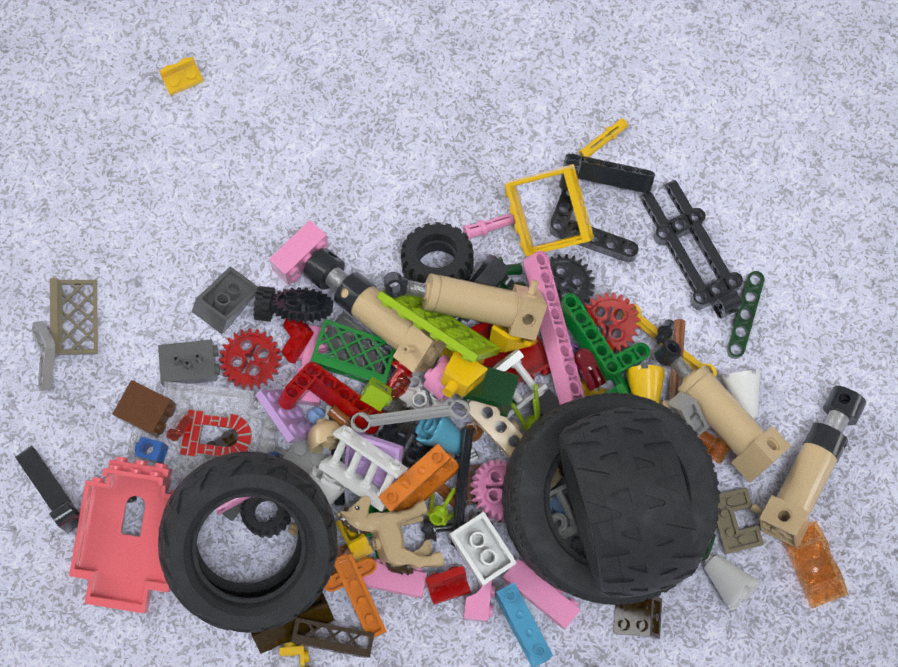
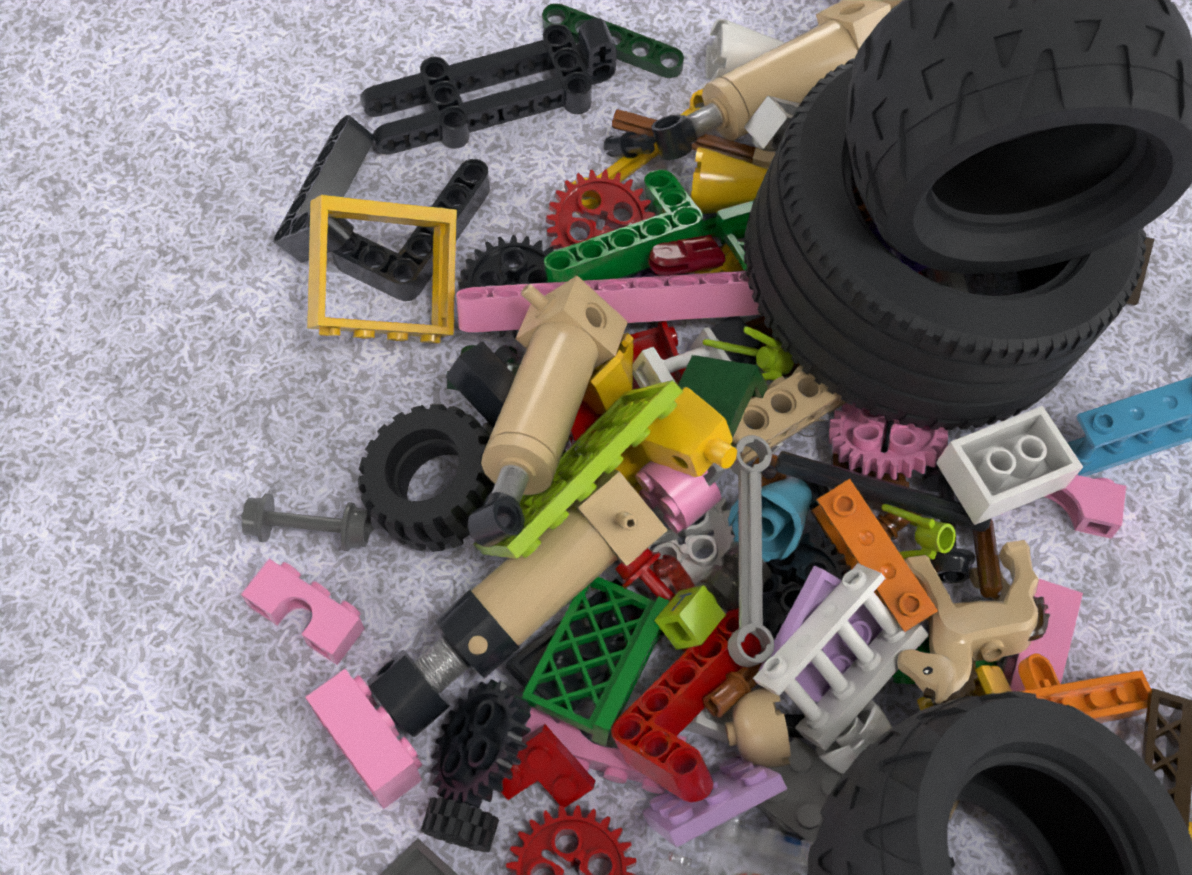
camera: 80 degrees left, 10 degrees down
(315, 414) = (711, 749): light blue plate -> none
(357, 227) = (280, 590): none -> bright pink arch
(408, 182) = (260, 516): none -> dark grey piece
(432, 546) = (988, 562): none -> reddish brown axle
(447, 585) = (1059, 549): red bracket -> none
(483, 227) = (380, 401): bright pink pin -> none
(542, 594) = (1088, 385): bright pink brick -> none
(620, 125) = (251, 179): yellow pin -> none

